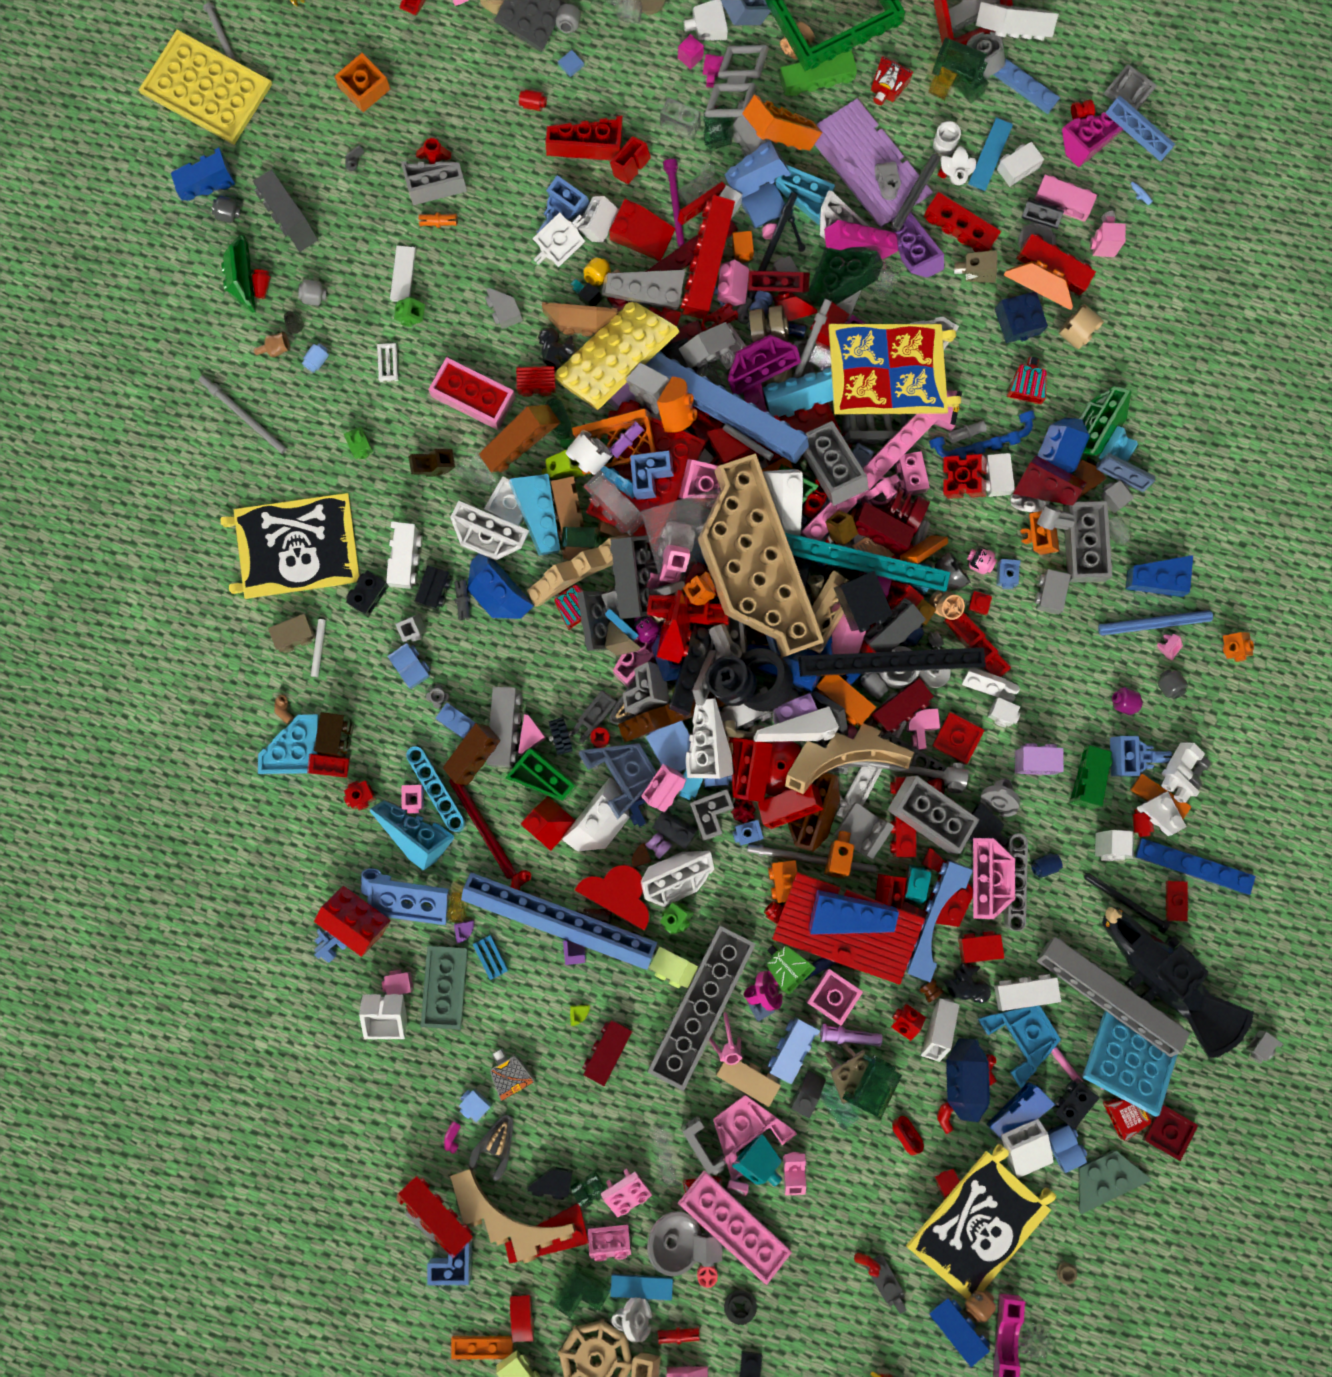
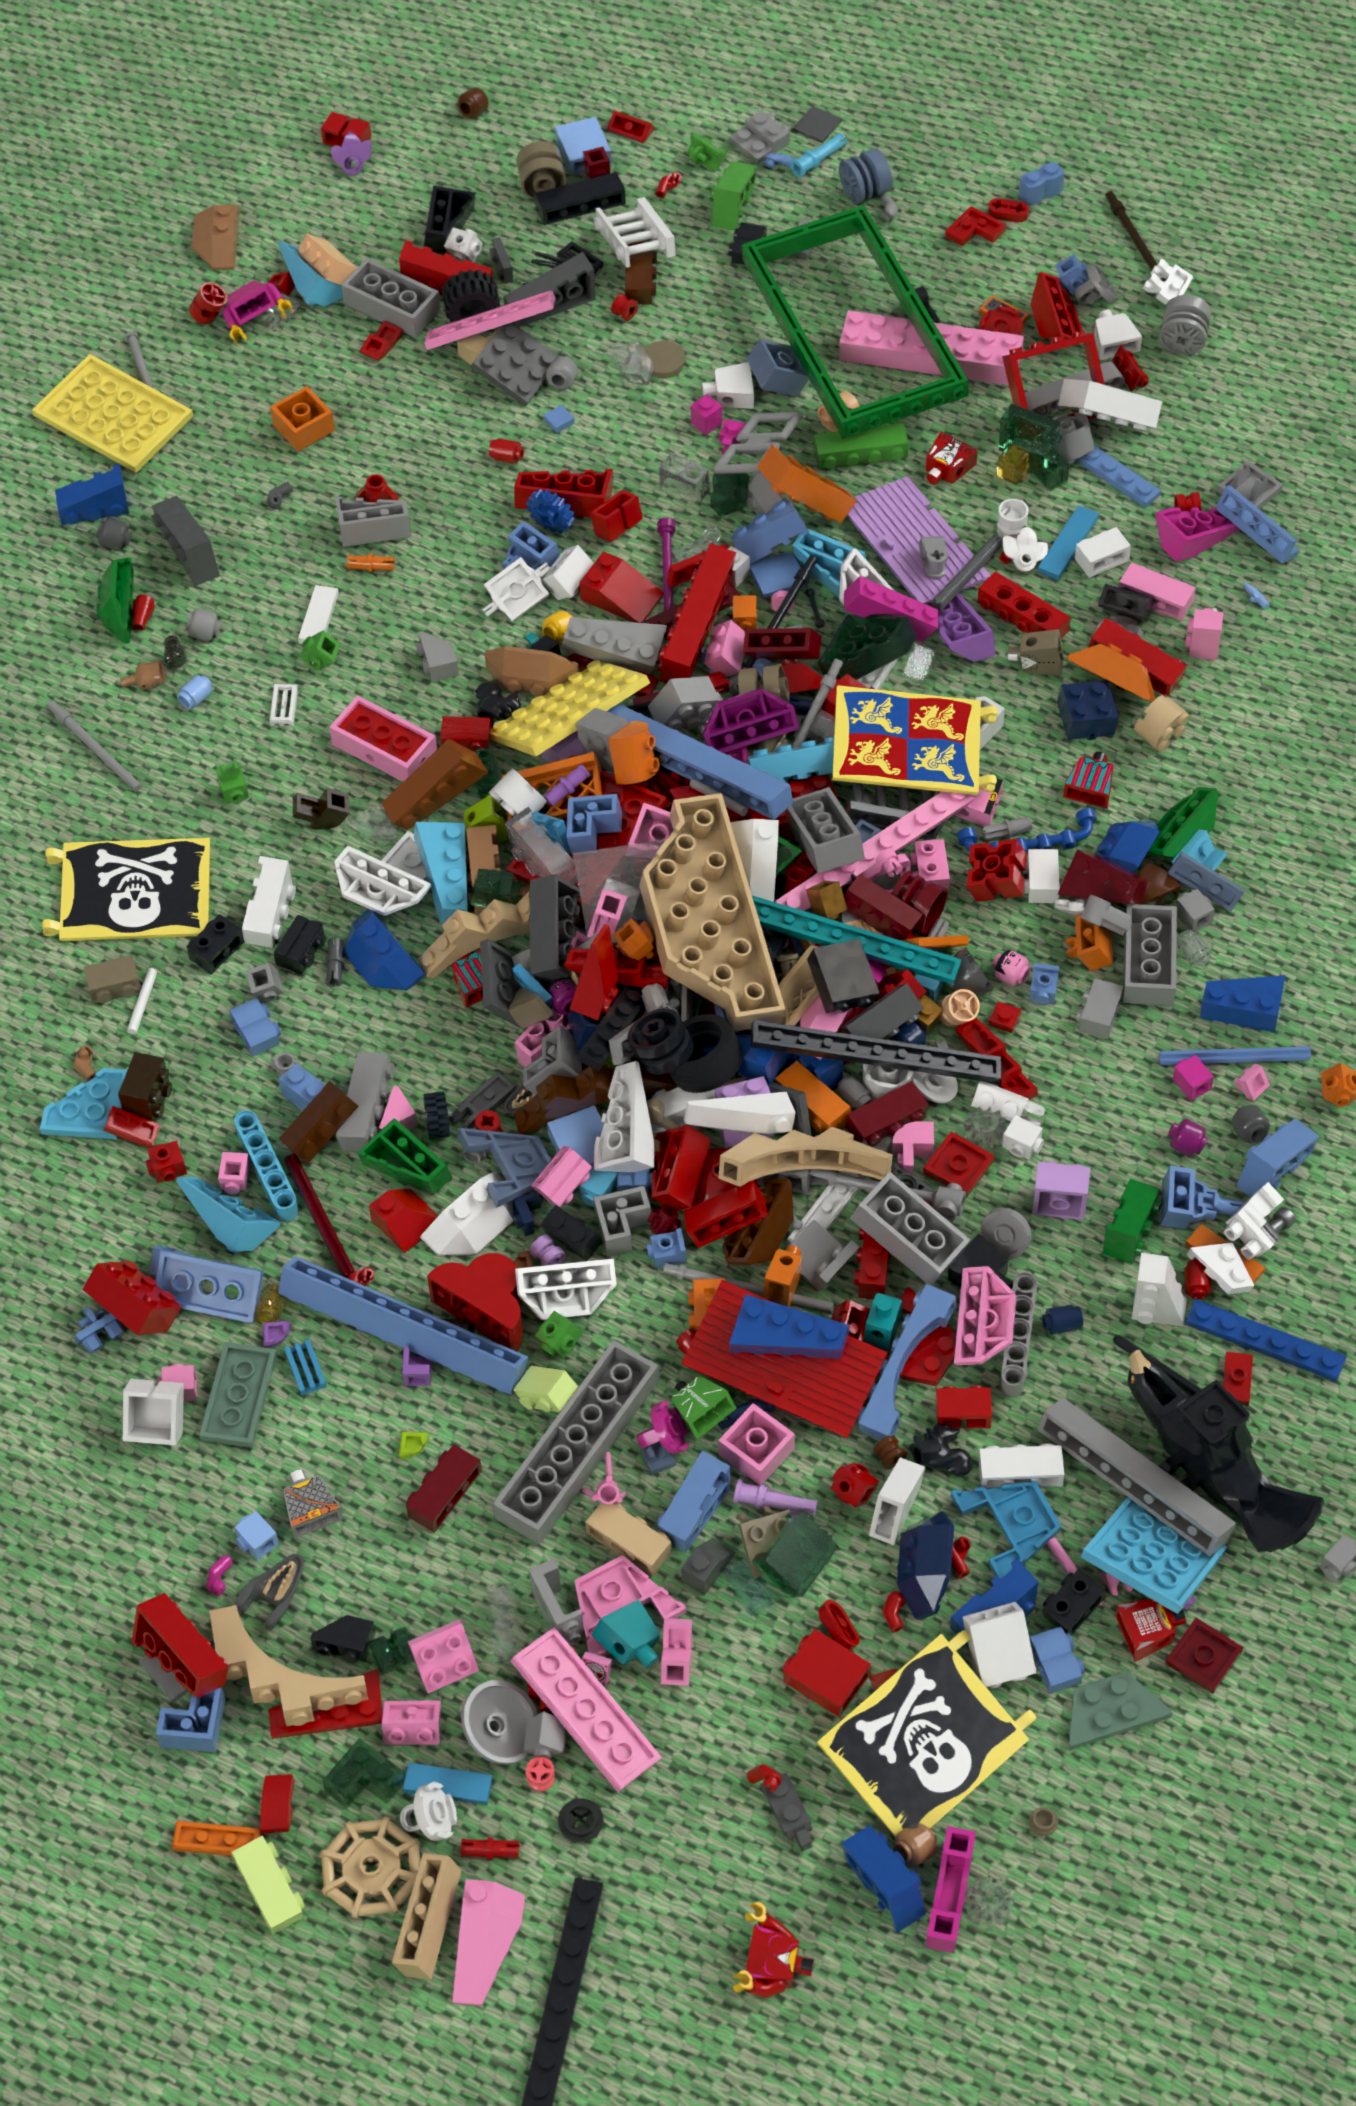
camera: 10 degrees right, 25 degrees down
(577, 161) = (550, 511): none -> blue gear
(902, 1174) = (826, 1672): none -> red brick
(982, 704) = (984, 1127): none -> clear gear
(1126, 646) = (1193, 1077): none -> dark pink brick
(1195, 714) = (1276, 1156): none -> medium blue wedge

